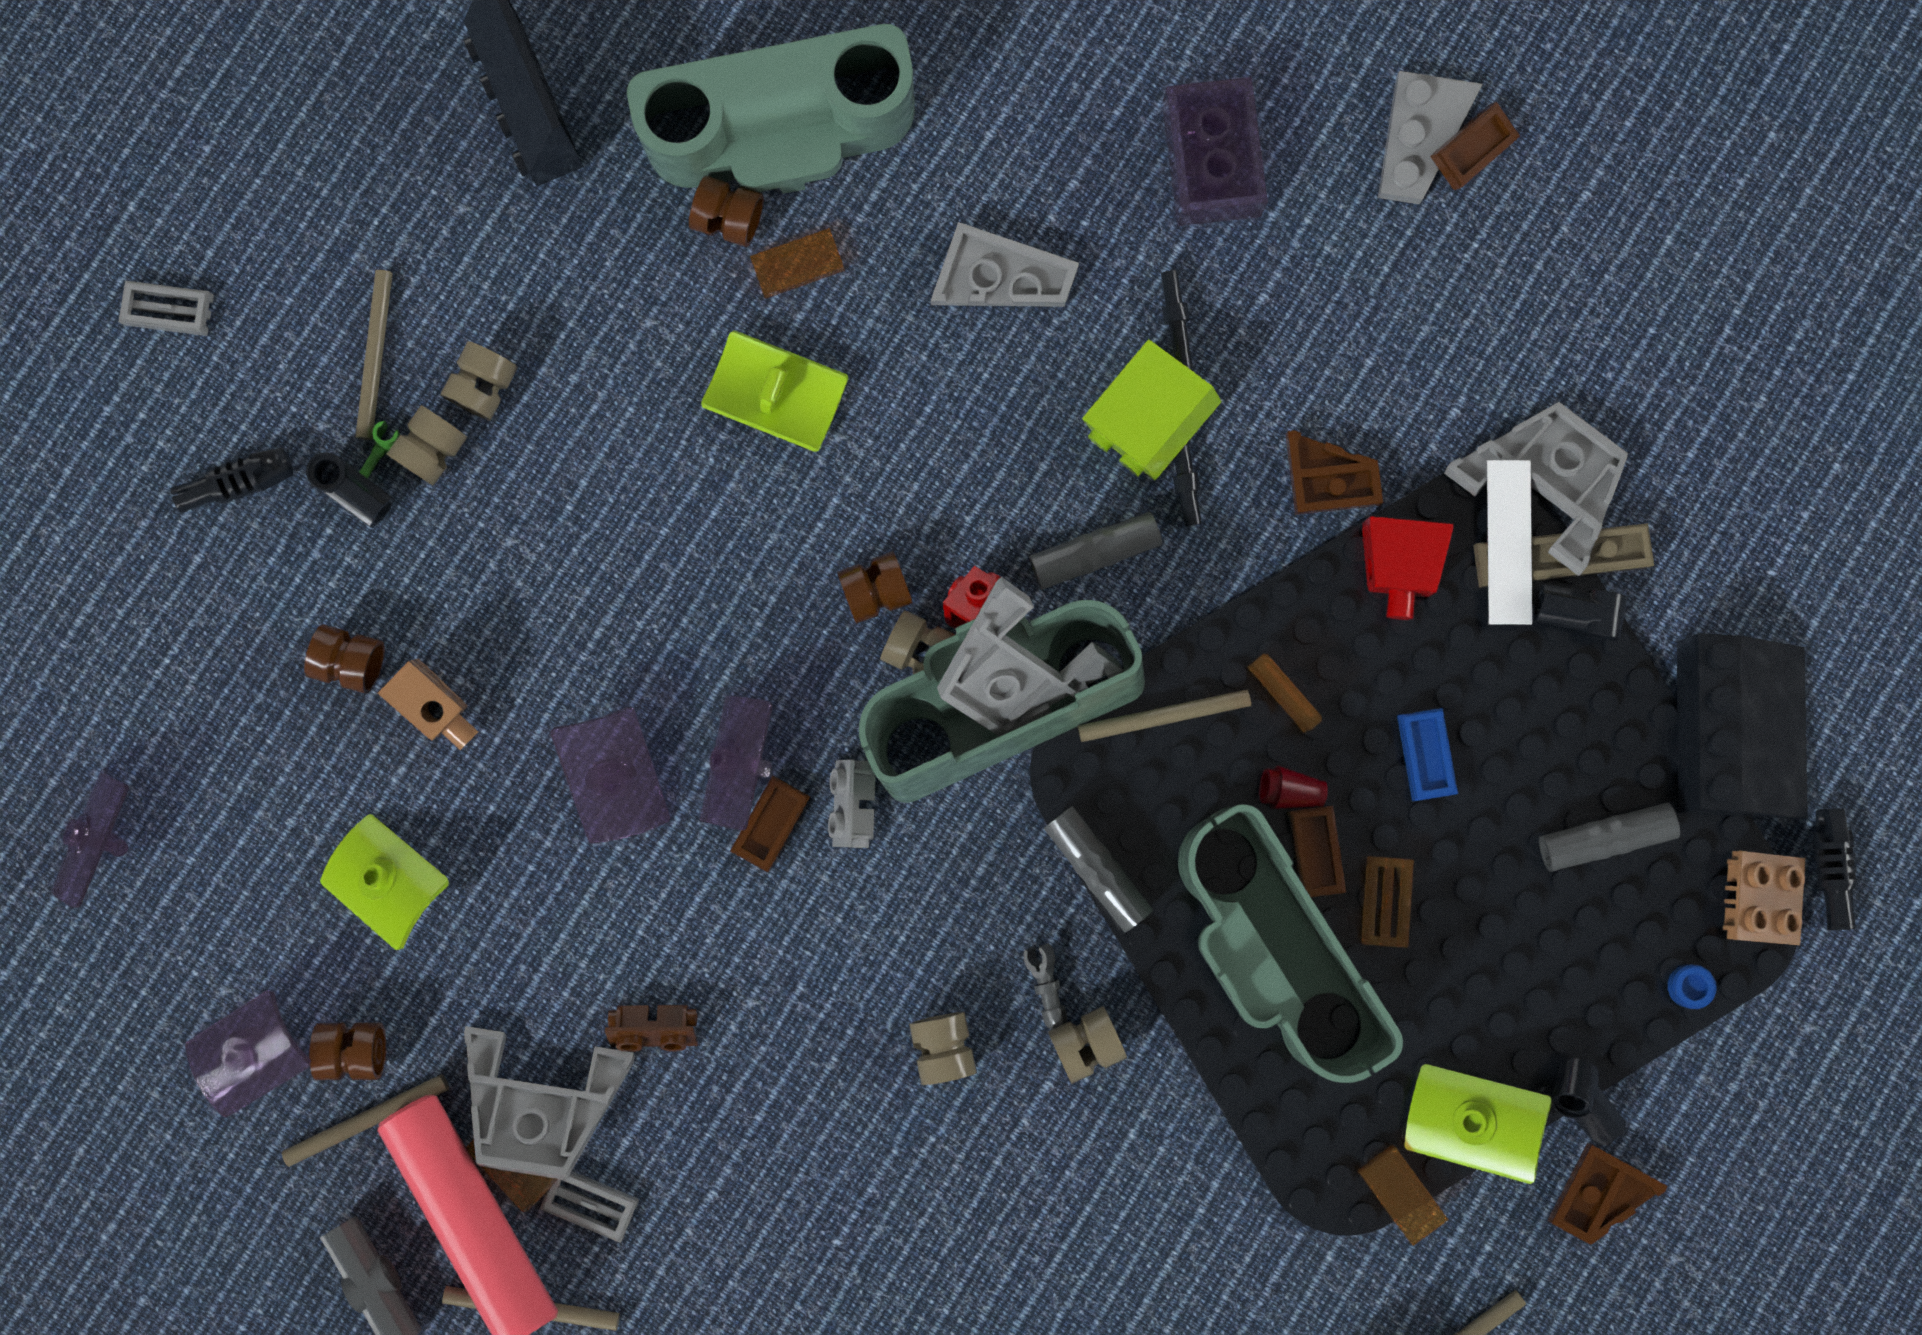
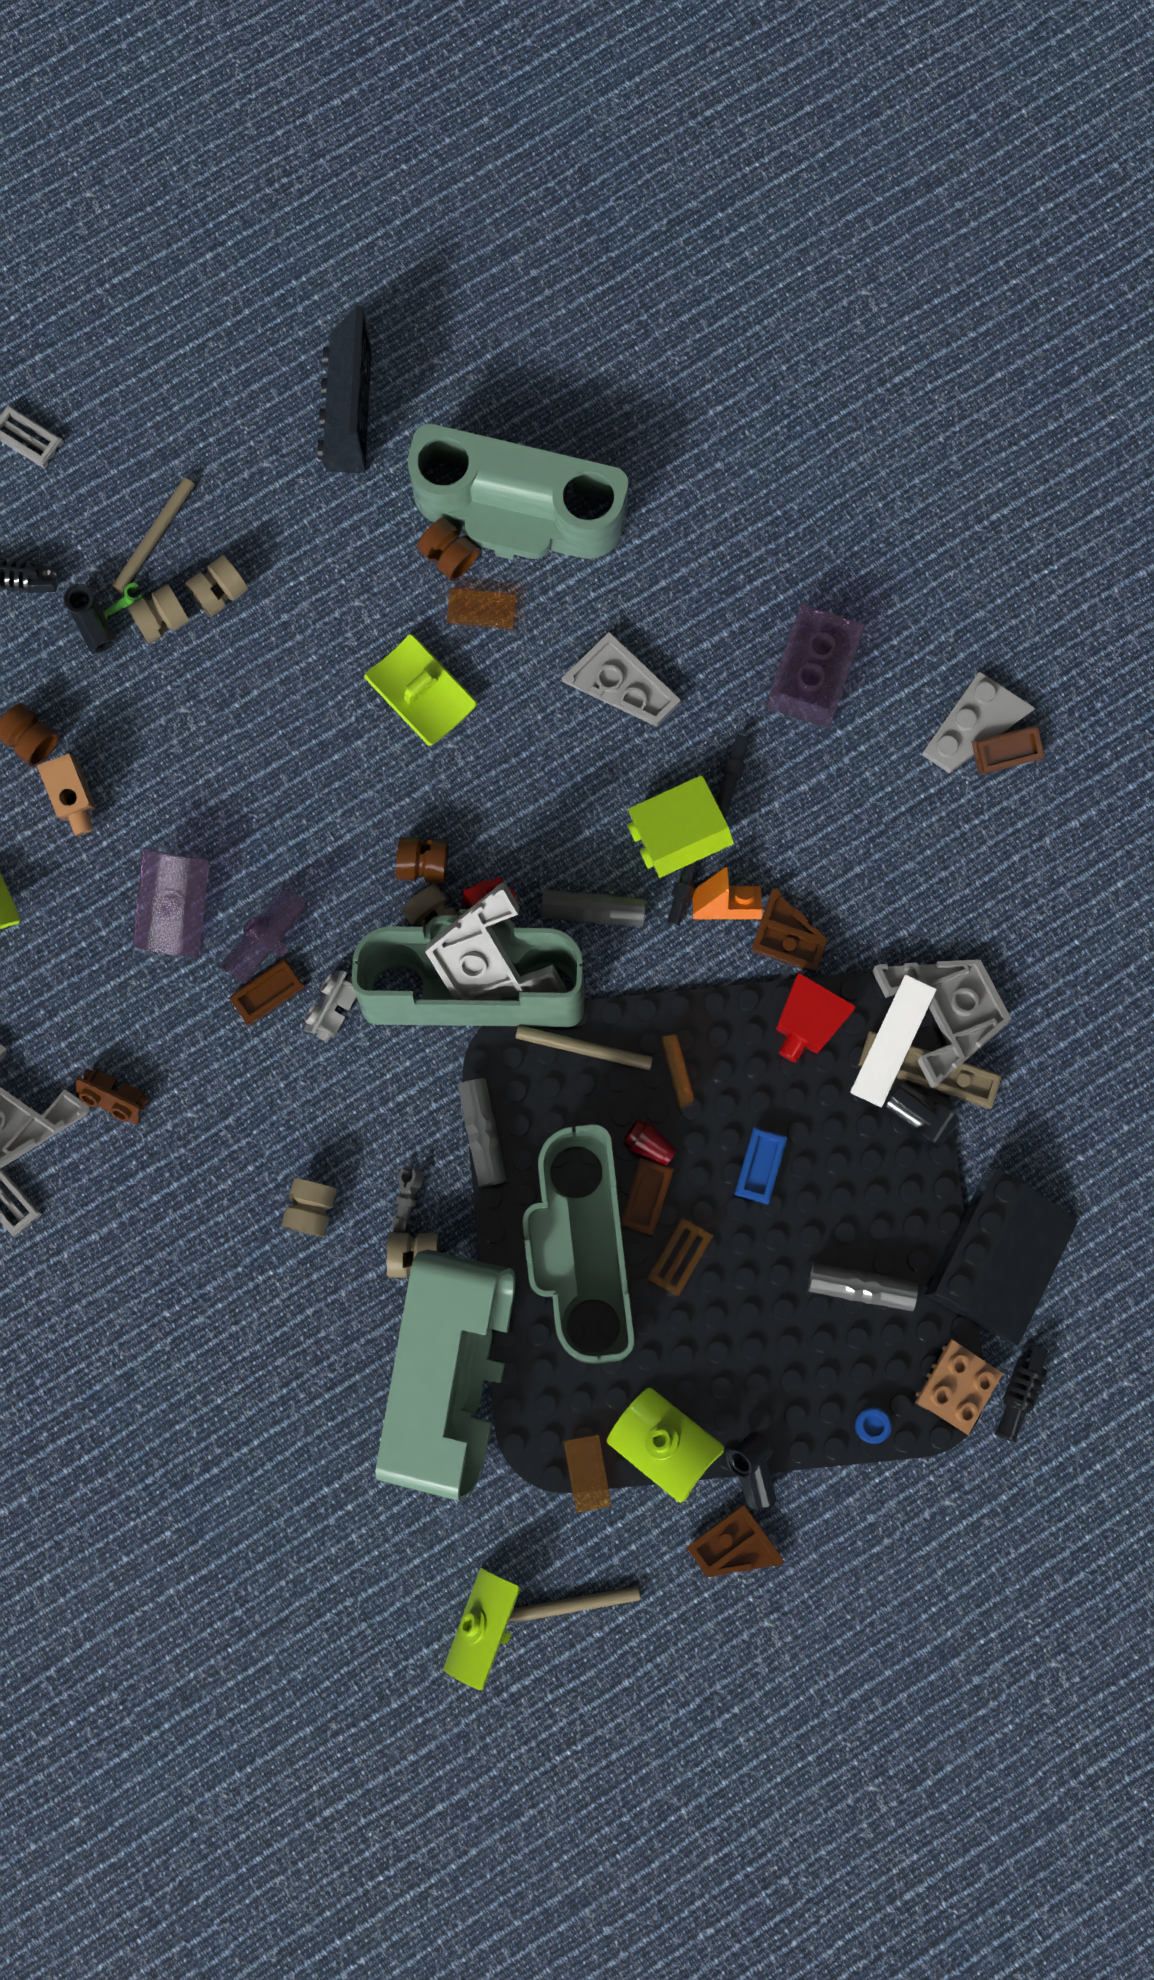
camera: 25 degrees right, 5 degrees down
(1210, 1240) = (440, 1374): none -> sand green piece
(1238, 472) = (720, 901): none -> orange slope

